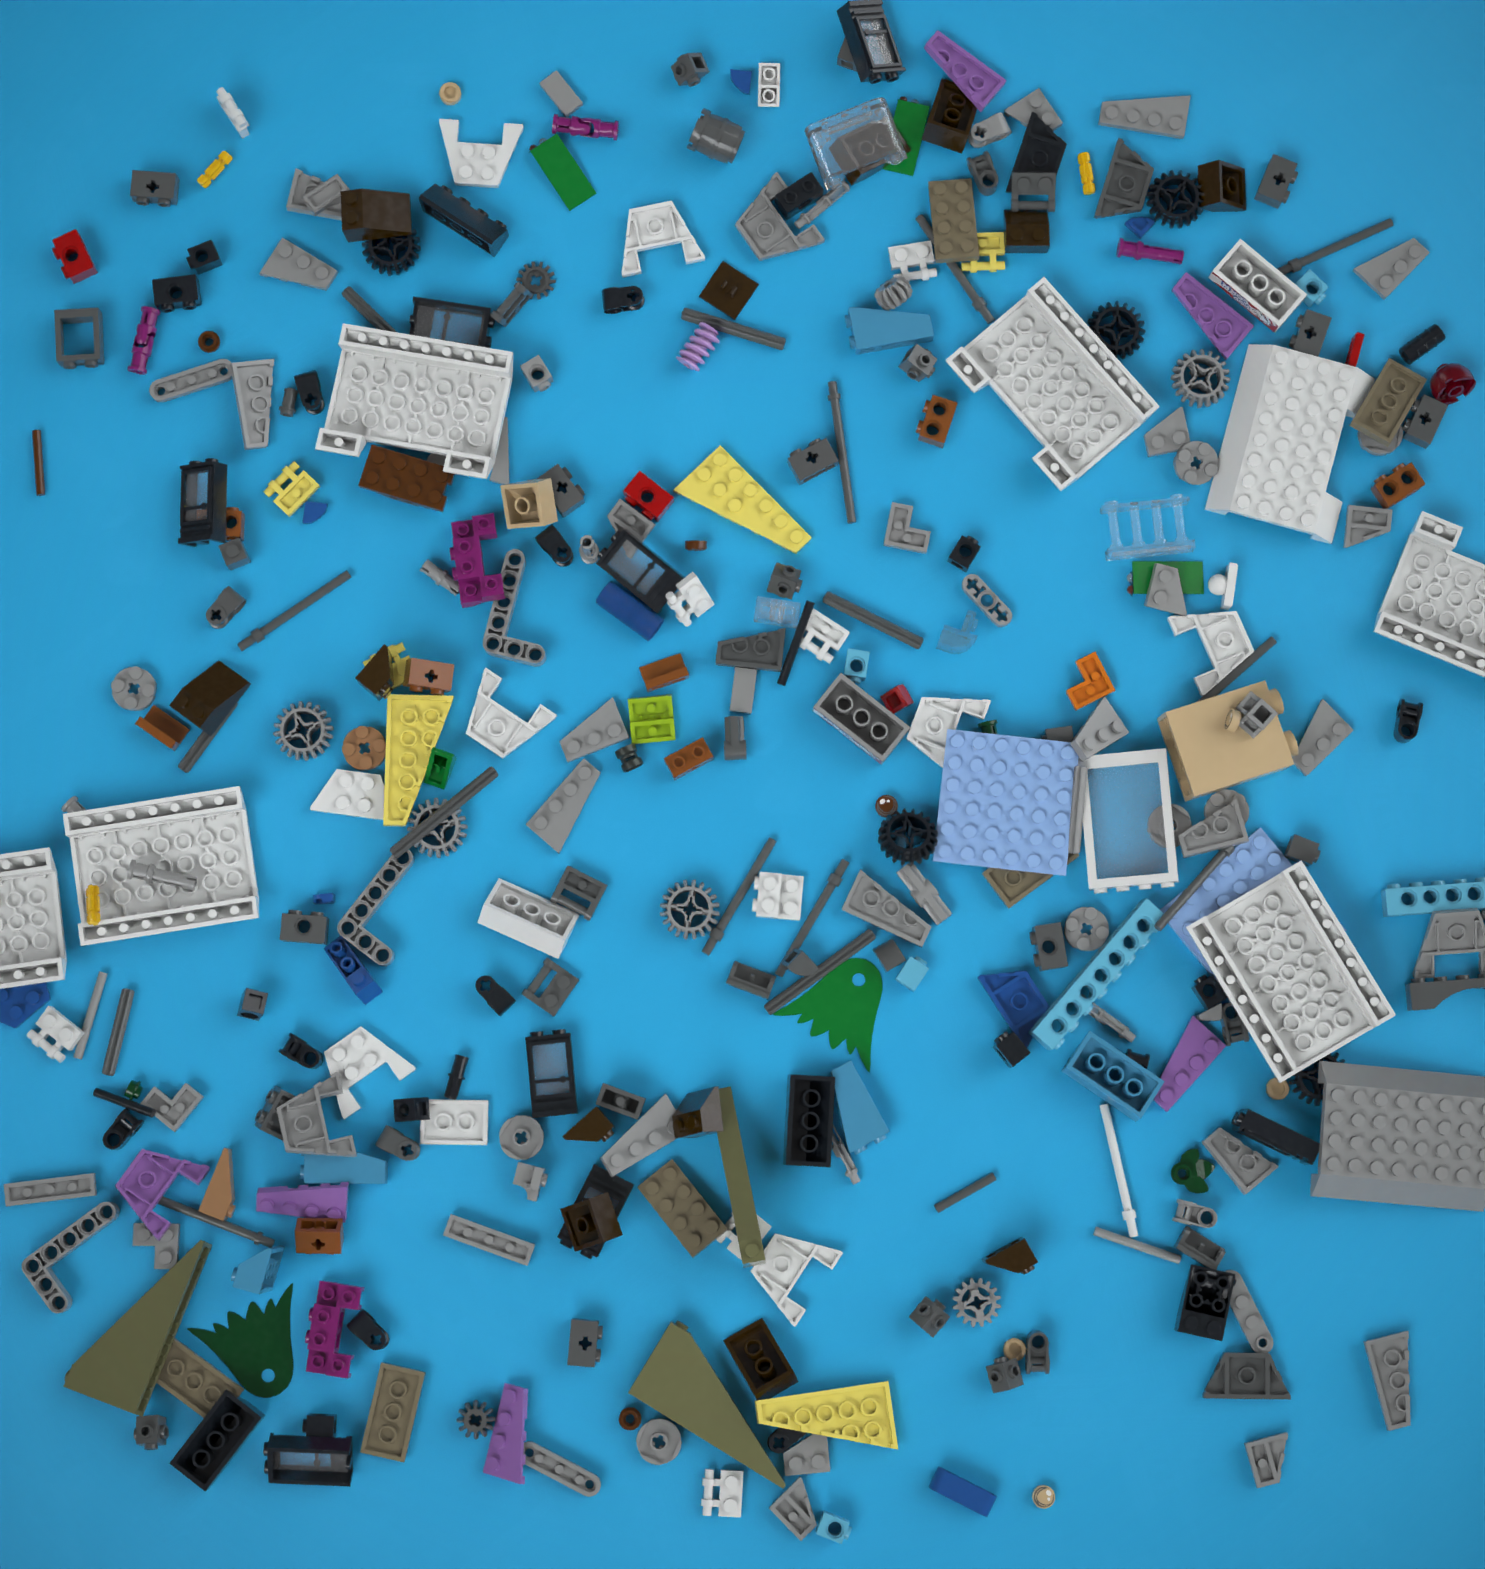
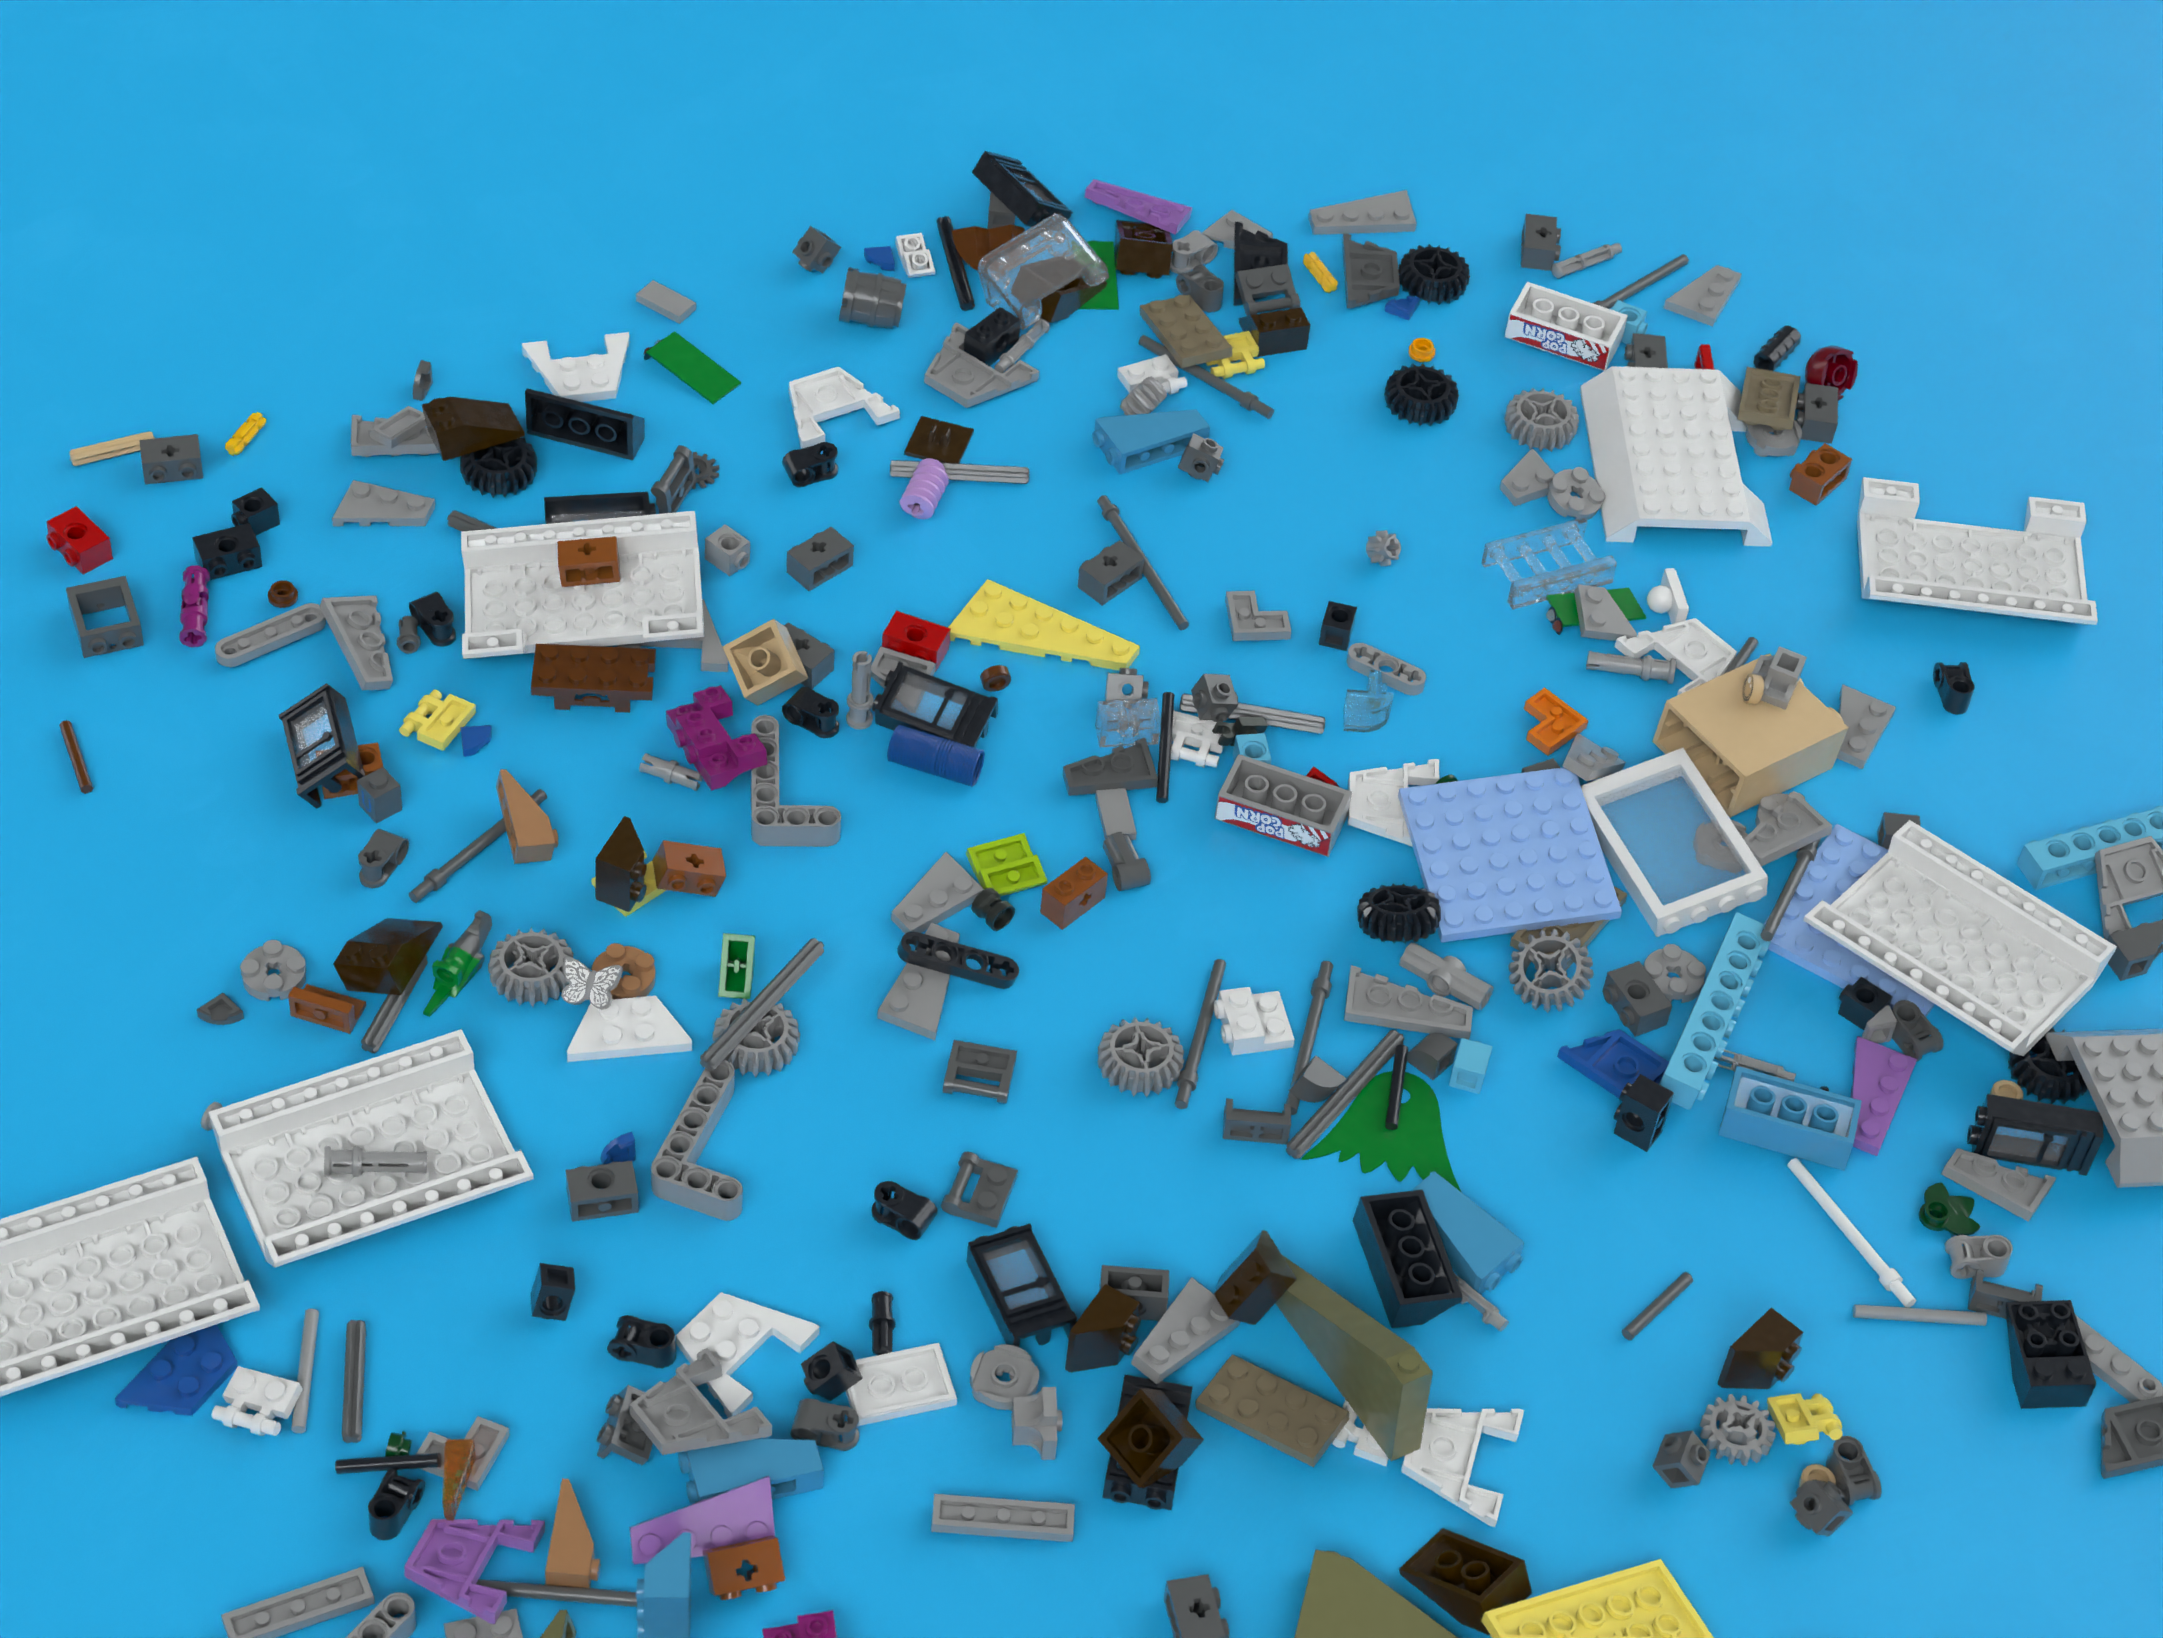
camera: 20 degrees left, 35 degrees down
(93, 713) = (220, 1011): none -> dark grey tile
(93, 905) = (280, 1211): yellow axle -> none
(115, 163) = (108, 449): none -> tan axle
(161, 1124) = (458, 1464): none -> clear orange slope
(235, 115) = (256, 371): white plate -> none
(256, 715) = (459, 962): none -> green animal
(327, 609) = (525, 822): none -> medium nougat slope
(335, 762) = (589, 984): none -> light grey animal
(353, 970) = (693, 1227): blue slope -> none
(355, 144) = (422, 380): none -> dark grey tile
(411, 733) = (687, 952): light yellow wing -> none
(435, 384) = (588, 561): none -> dark orange brick
(450, 93) = (527, 323): tan tile -> none
(498, 727) = (802, 912): white wing -> none
(528, 918) = (919, 1115): white slope -> none
(583, 125) = (704, 322): magenta piece -> none
(591, 796) = (957, 965): none -> black beam
(593, 405) = (819, 558): none -> dark grey brick
(664, 672) = (1006, 816): dark orange panel -> none
(694, 594) = (1016, 722): white plate -> none
(798, 100) = (955, 264): none -> black axle
(828, 94) = (976, 242): none -> reddish brown brick
(843, 613) = (1214, 697): none -> dark grey brick
(855, 642) = (1242, 726): none -> pearl dark grey plate
(855, 976) = (1396, 1087): none -> black bar
(886, 805) = (1350, 895): reddish brown tile -> none
(940, 422) = (1247, 509): dark orange brick -> none
(992, 905) = (1537, 989): none -> light grey gear
(1014, 1307) = (1803, 1419): none -> light yellow plate
(1025, 485) = (1383, 548): none -> light grey gear
(1056, 382) = (1378, 445): white slope -> none
(1077, 808) = (1602, 835): light grey axle -> none
(1138, 274) = (1422, 350): none -> light orange plate
(1139, 250) = (1413, 324): magenta pin -> none
(1180, 647) = (1644, 667): none -> light grey pin
(1215, 318) = (1524, 363): medium lavender wing -> none
(1222, 187) = (1481, 253): dark brown slope -> none
(1308, 206) = (1585, 260): none -> light grey piece
(1365, 523) = (1802, 515): light grey wing -> none

